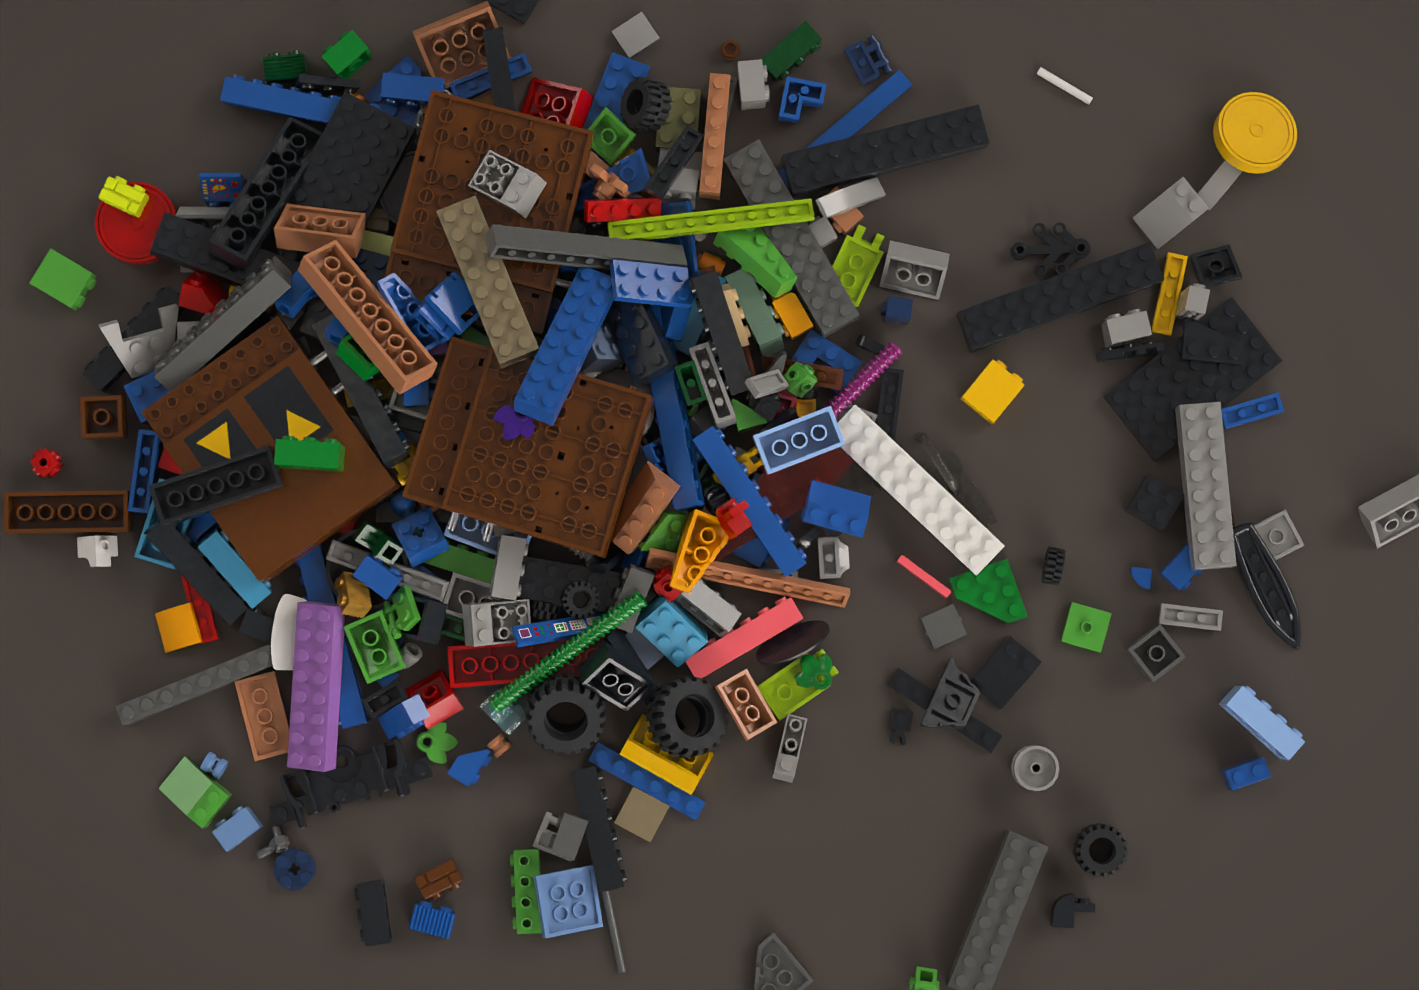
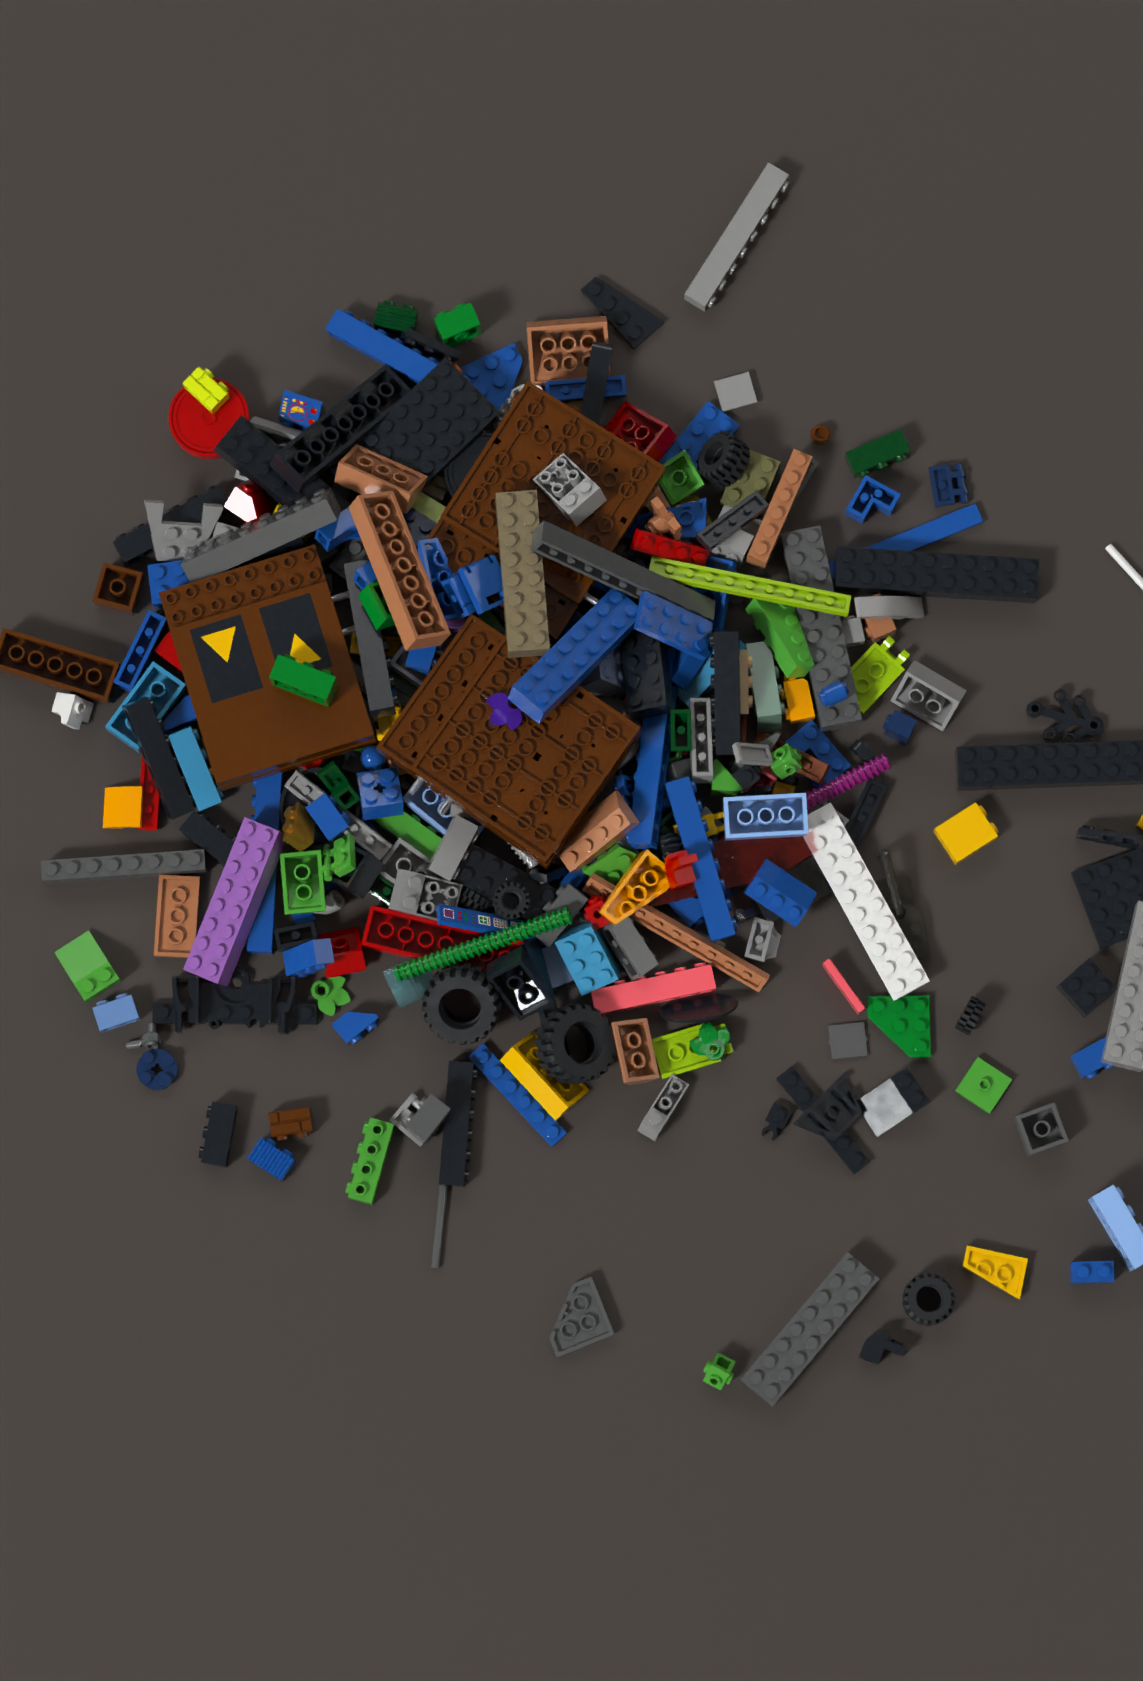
camera: 20 degrees right, 5 degrees down
(53, 464) = (51, 621): red brick -> none
(63, 279) = (123, 449): bright green brick -> none
(214, 765) = (114, 947): medium blue wheel -> none
(217, 486) = (208, 682): black brick -> none
(284, 633) = (222, 843): white sticker -> none
(409, 89) = (505, 374): blue brick -> none
(499, 745) = (389, 1015): nougat wheel -> none
(568, 901) = (406, 1182): medium blue plate -> none
(641, 814) = (502, 1124): dark tan tile -> none
(707, 260) = (736, 622): orange brick -> none
(751, 84) = (831, 467): light grey brick -> none
(825, 299) = (833, 694): none -> blue brick
(1046, 772) = (886, 1212): light grey wheel -> none
(1126, 329) = (1112, 814): light grey brick -> none
(1142, 576) = (1052, 1054): blue tile -> none
(1156, 798) = (997, 1268): none -> yellow wing
(1190, 617) = (1086, 1107): light grey plate -> none

